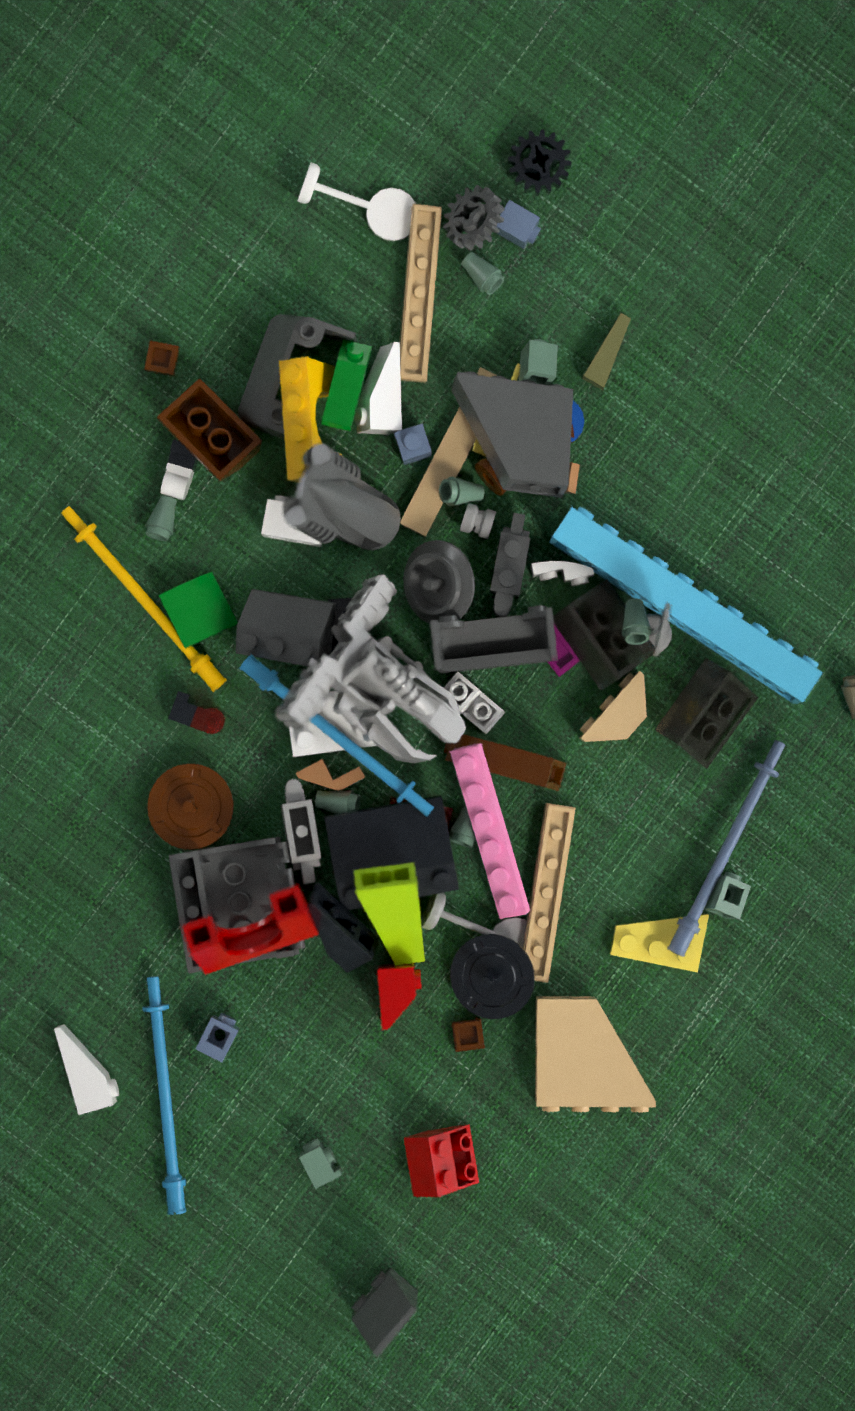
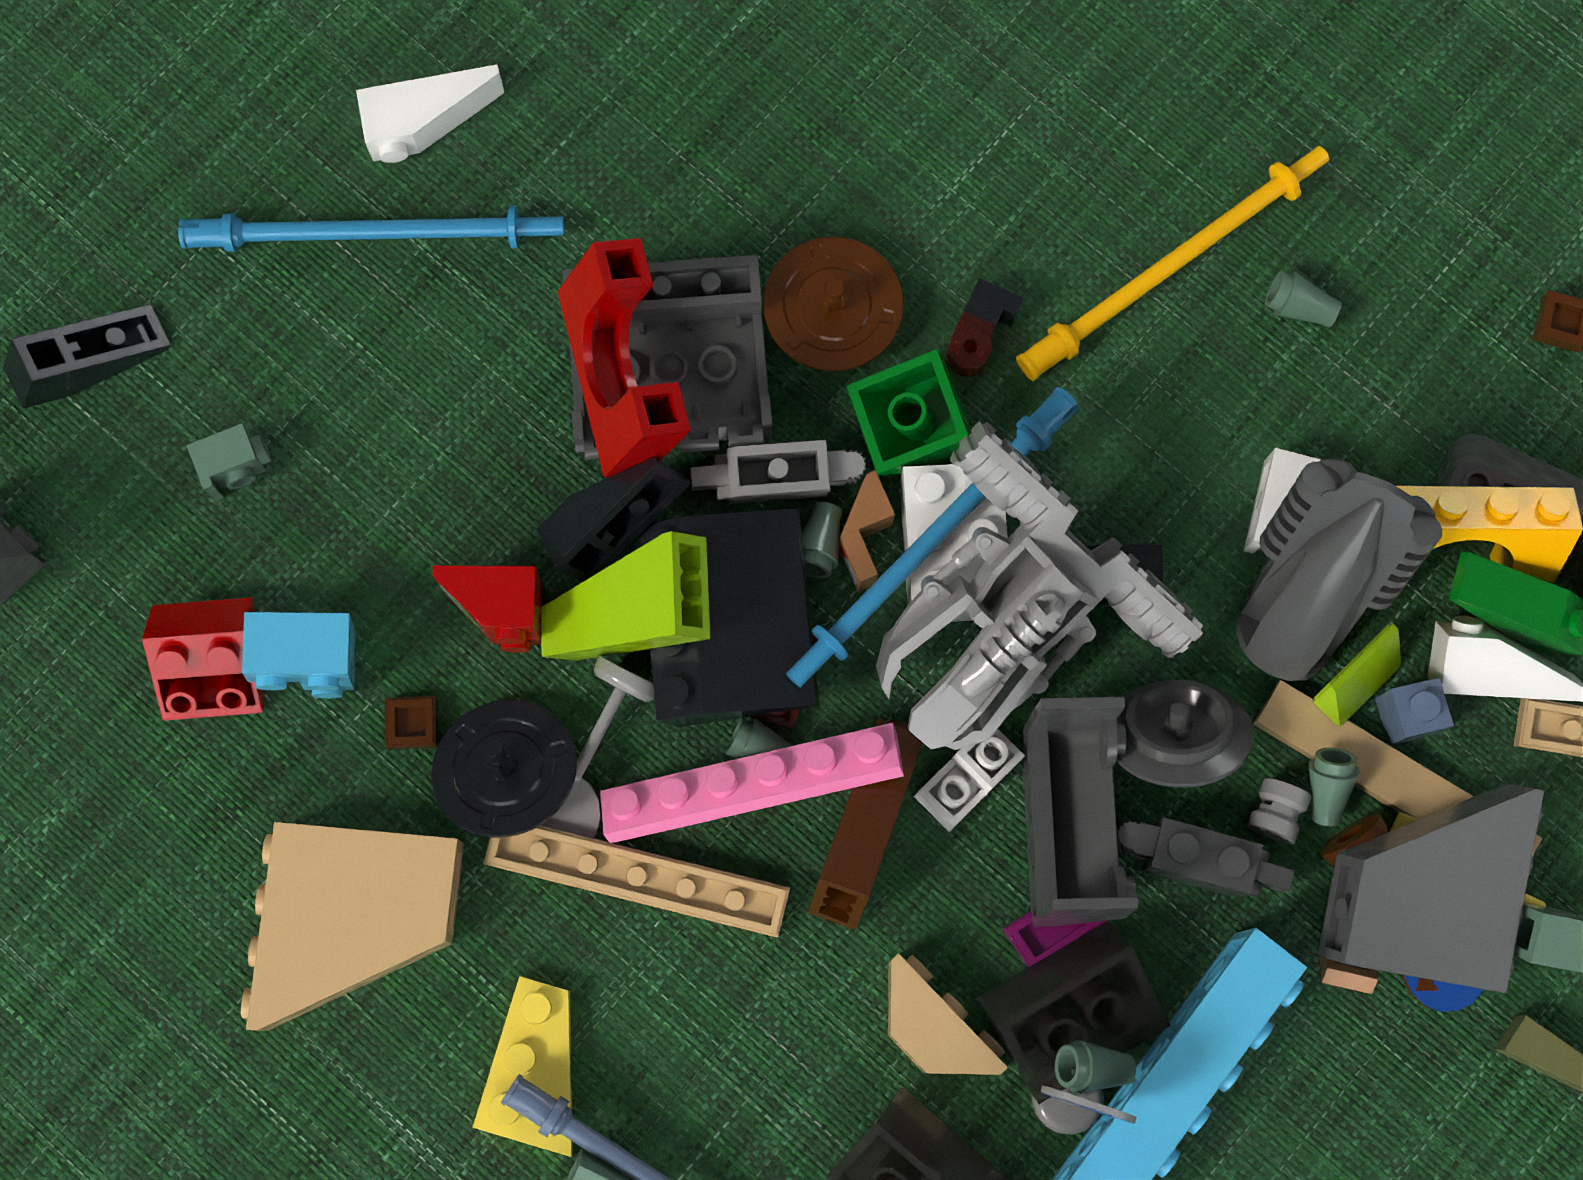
camera: 90 degrees right, 10 degrees down
(179, 471) = (1382, 334): white leg -> none
(198, 609) = (1151, 343): green slope -> none
(210, 431) = (1448, 380): reddish brown slope -> none
(210, 1044) = (447, 304): sand blue brick -> none
(258, 752) = (910, 414): none -> green slope
(260, 1261) = (81, 354): none -> black slope
(285, 627) = (1119, 470): dark grey slope -> none
(394, 475) = (1361, 677): none -> lime slope
(436, 1104) = (301, 649): none -> medium azure brick
(573, 572) = (1184, 966): white slope -> none

